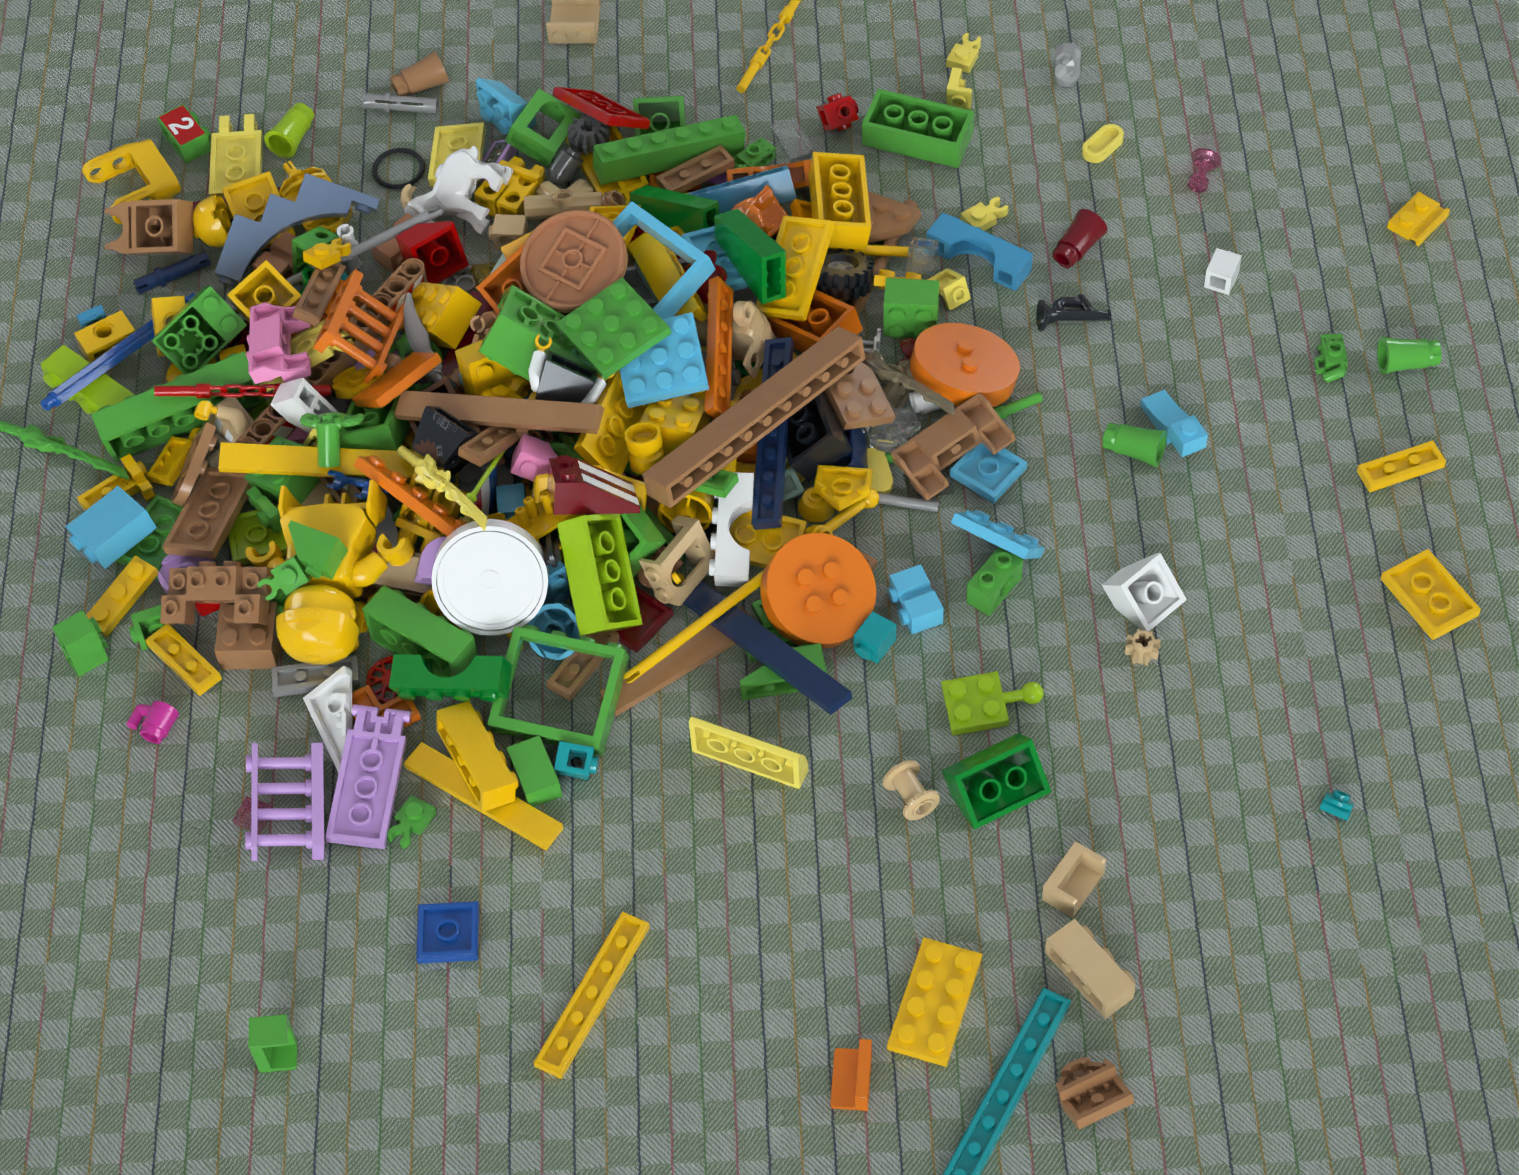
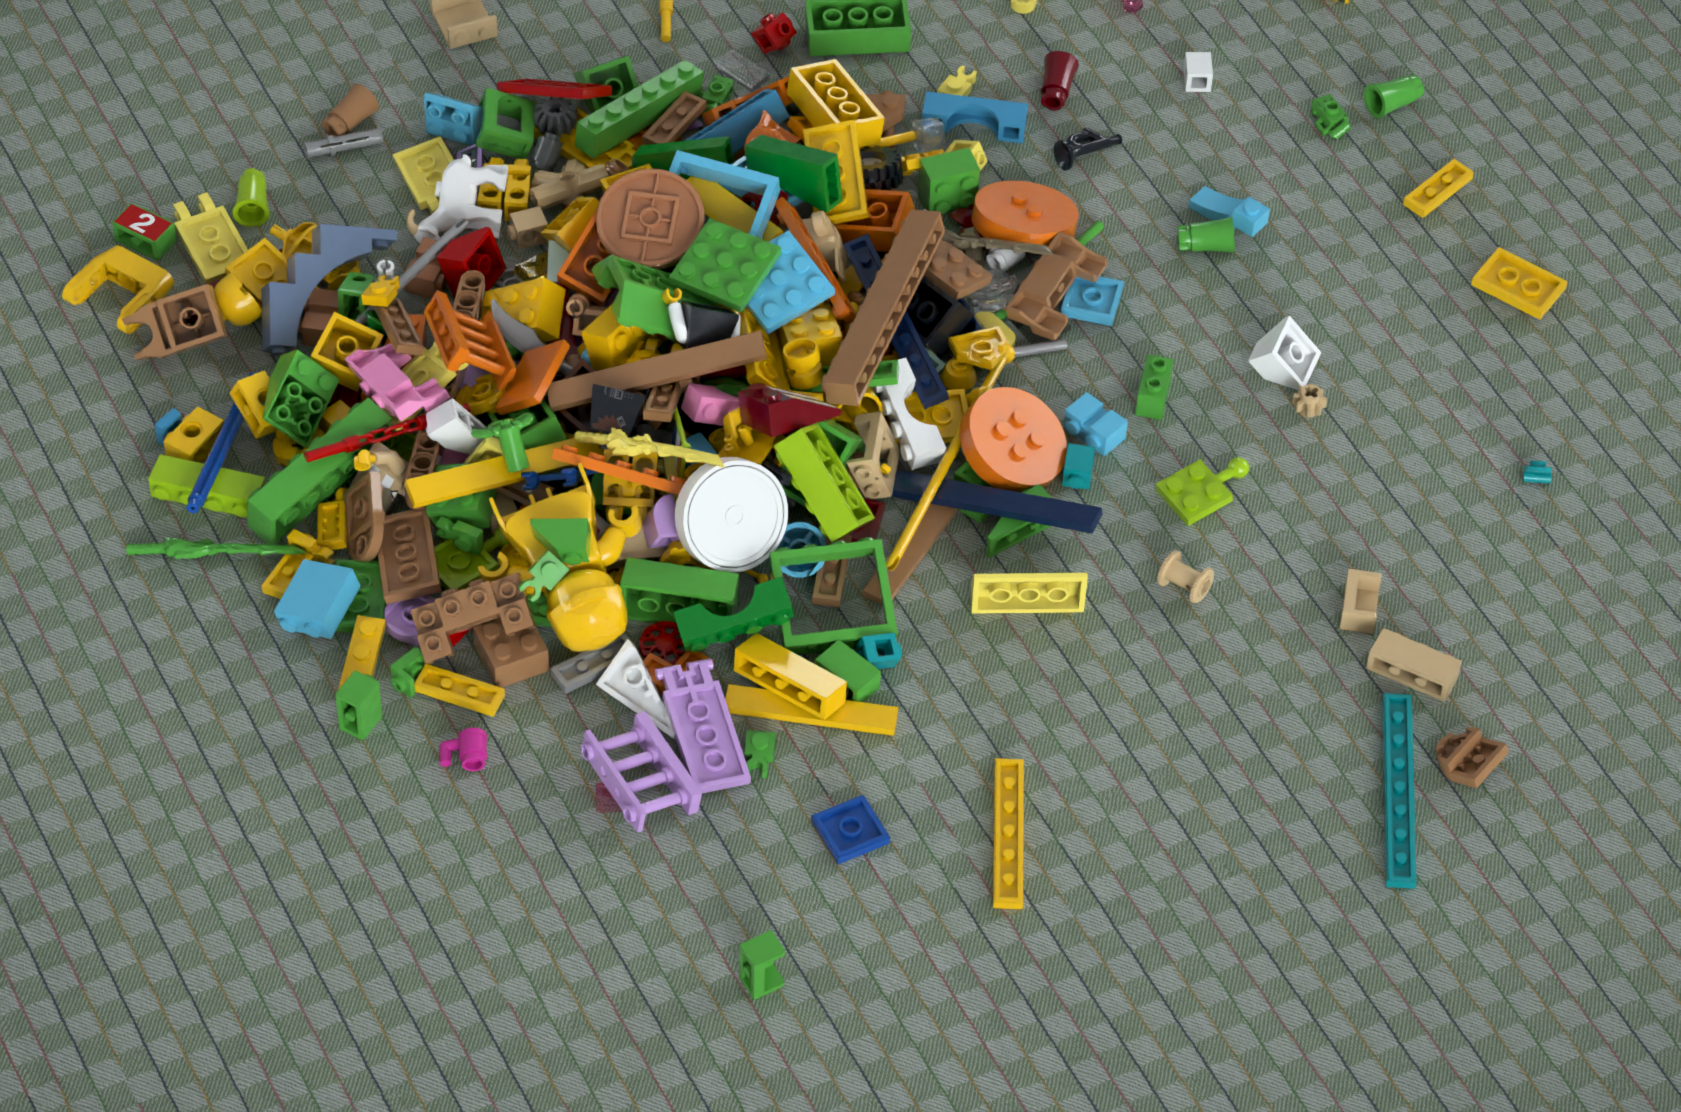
camera: 30 degrees left, 5 degrees down
(162, 276) = (209, 367): dark blue pin -> none
(393, 151) = (374, 185): black tyre -> none
(852, 1077) = (1270, 816): orange panel -> none
(934, 1002) = (1300, 736): yellow plate -> none
(997, 780) = (1251, 545): green slope -> none
(998, 534) = (1138, 345): medium azure plate -> none

